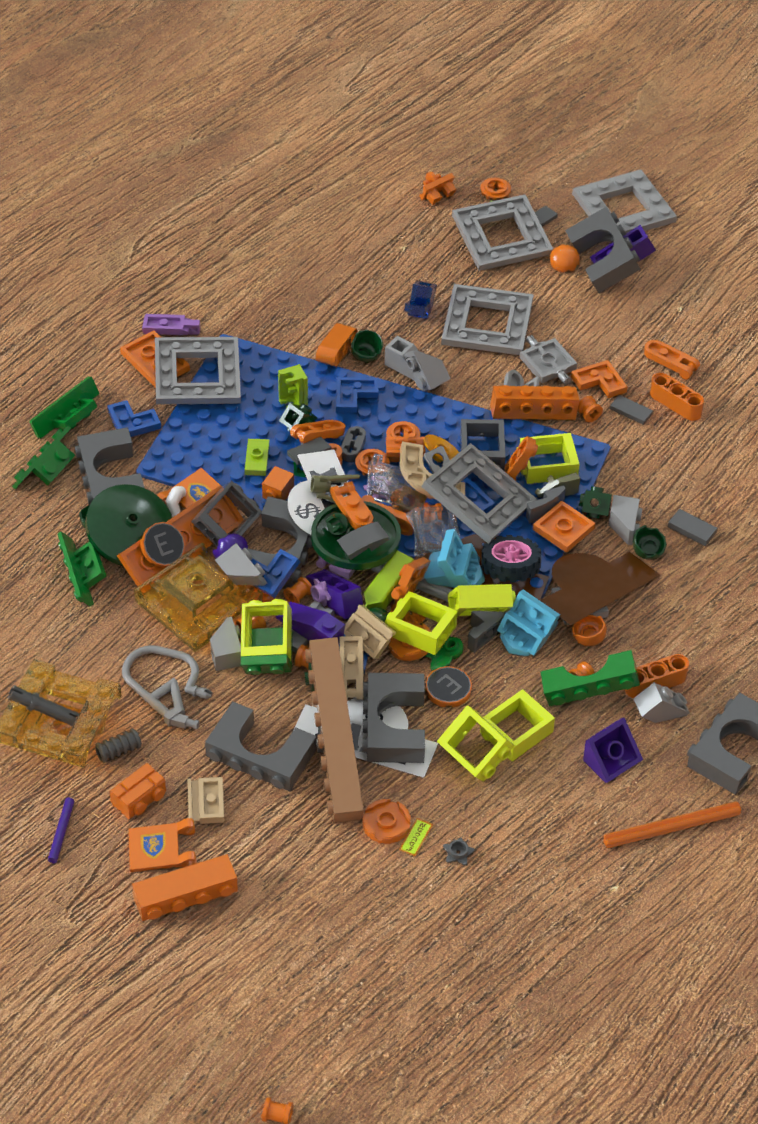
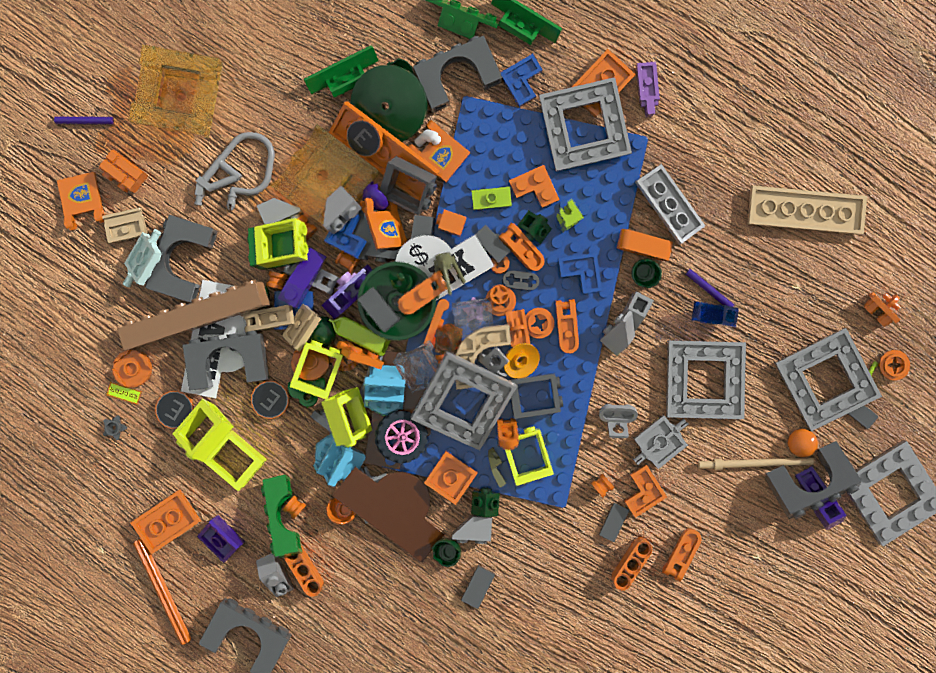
camera: 80 degrees right, 40 degrees up
(35, 702) = (166, 69): dark grey pin -> none
(118, 745) = (165, 146): dark grey piece -> none
(185, 887) = (36, 226): orange brick -> none
(250, 417) = (537, 181): none -> orange plate
(252, 775) = (142, 258): none -> light aqua plate
(267, 542) = (384, 225): none -> orange flag
(296, 323) = (670, 204): none -> light grey slope
(327, 228) = (807, 210): none -> tan plate
(364, 452) = (499, 294): none -> orange wheel
(389, 309) = (708, 288): none -> dark purple bar
(410, 411) = (567, 326): none -> orange plate
(445, 782) = (173, 408): none -> black tile
(534, 402) = (596, 436): orange brick -> none
(538, 508) = (476, 463): dark grey slope -> none
(578, 320) = (719, 464): none -> tan bar
(584, 806) = (165, 521): none -> orange plate

